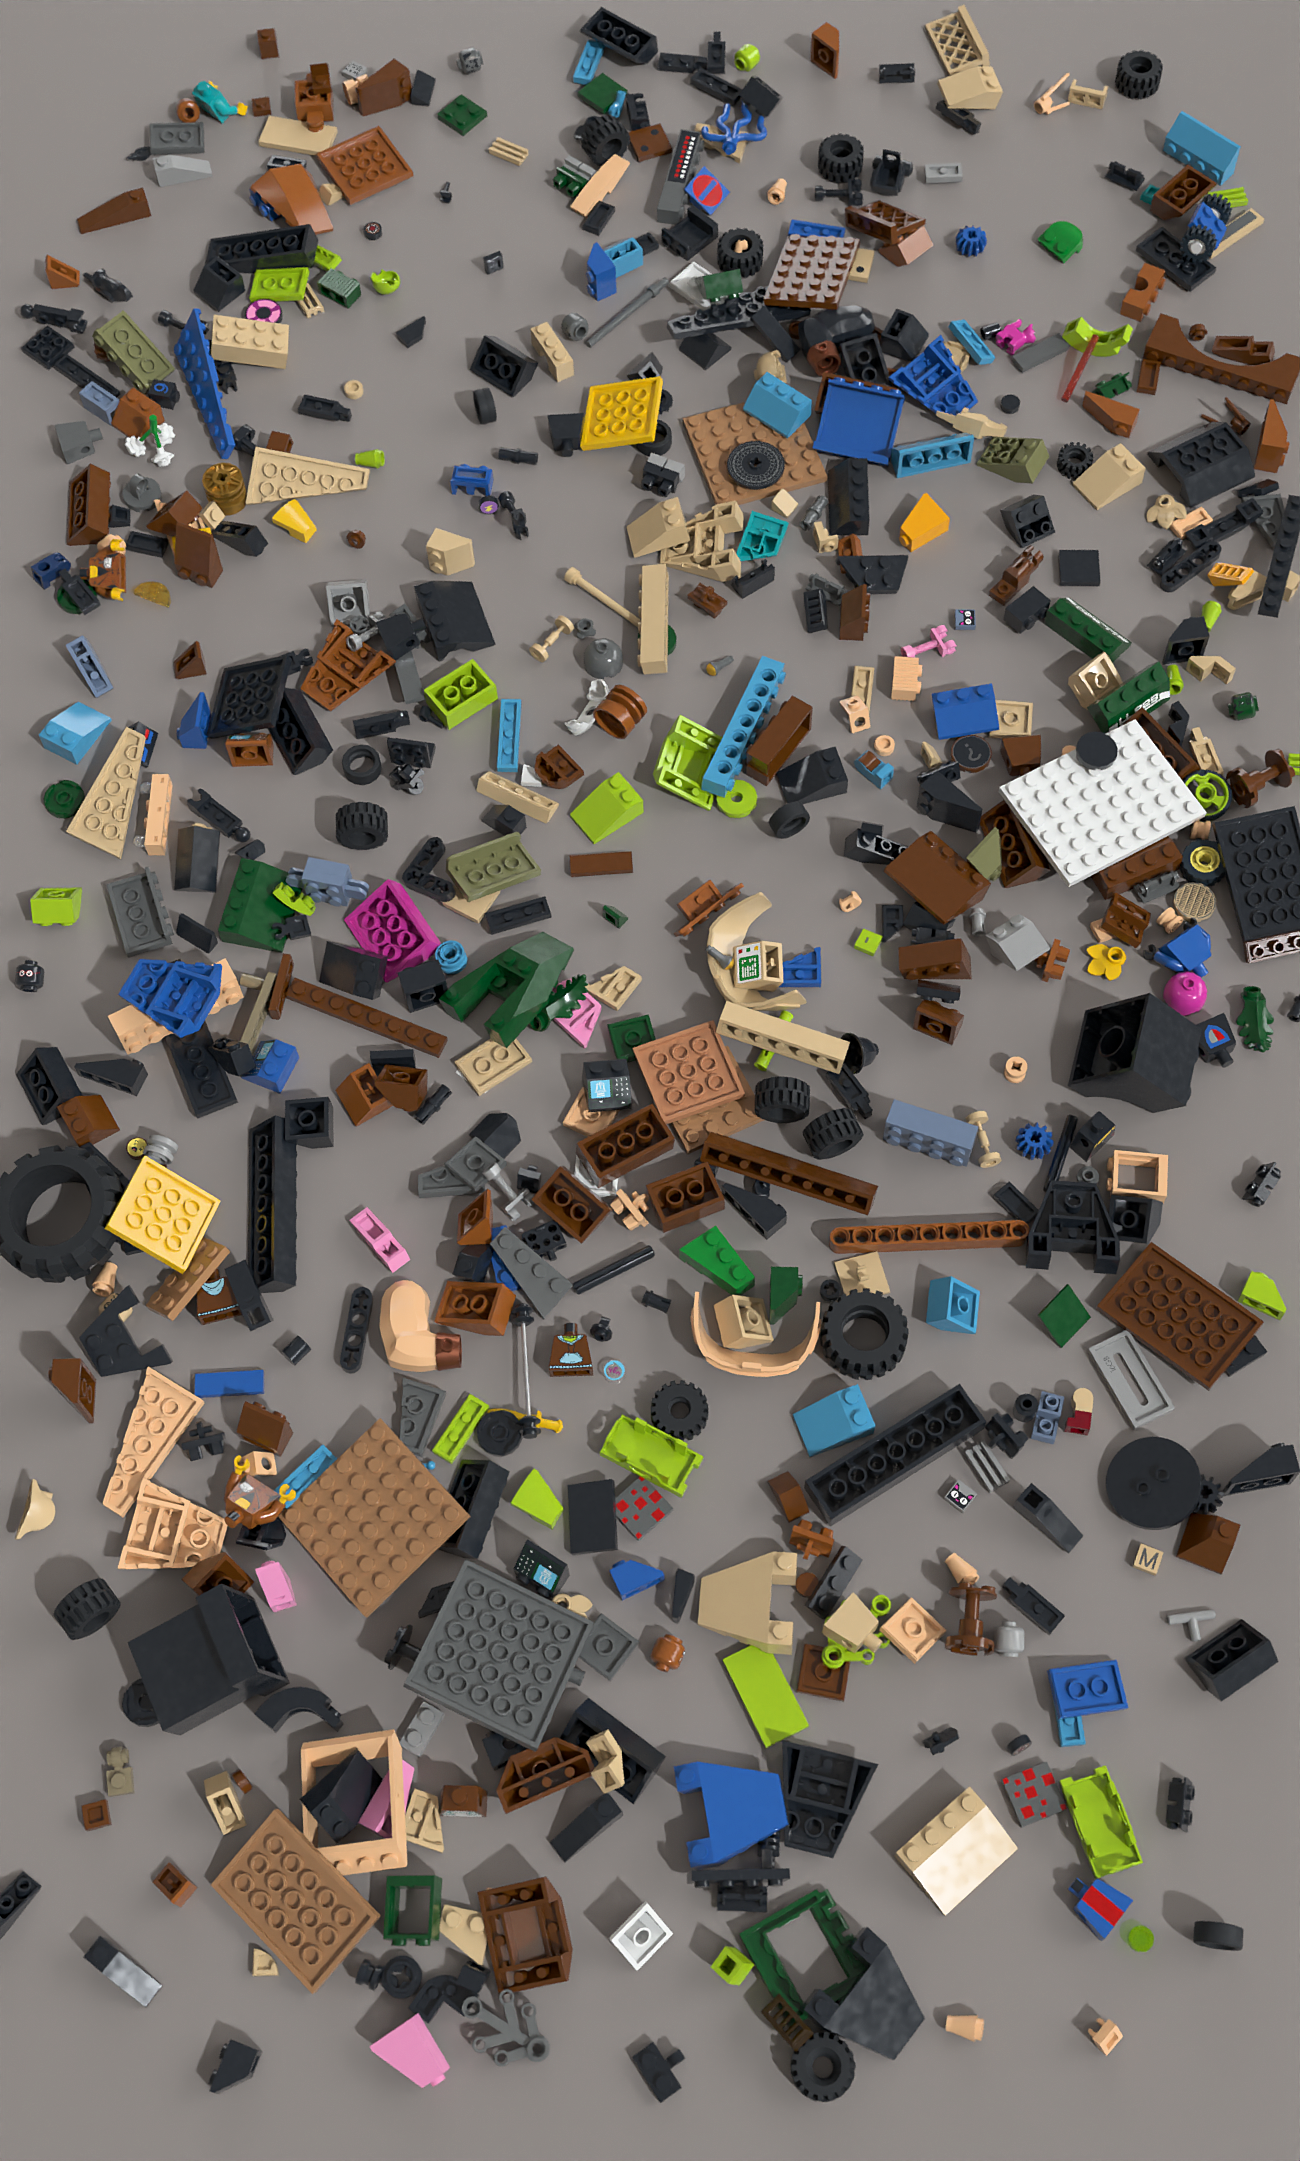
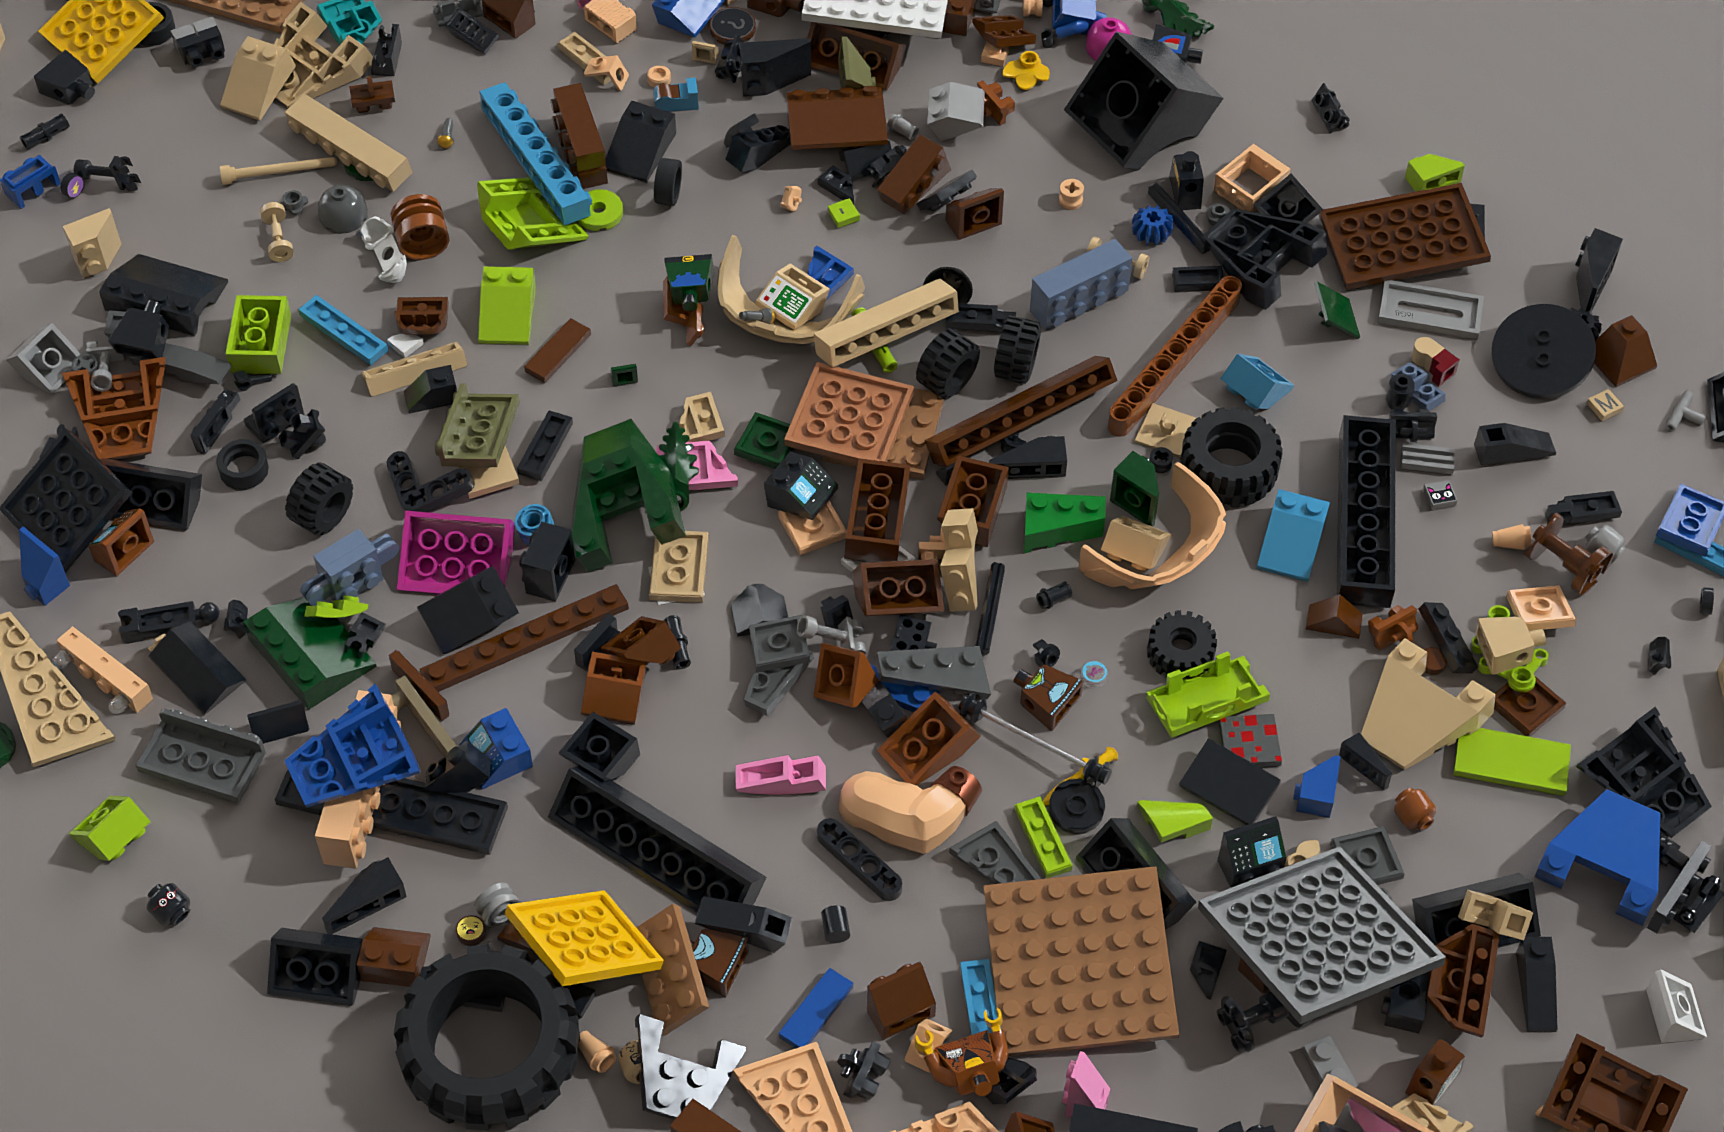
camera: 55 degrees left, 10 degrees down
(618, 1226) = (958, 561): none -> tan arch
(710, 895) = (690, 279): none -> dark green torso

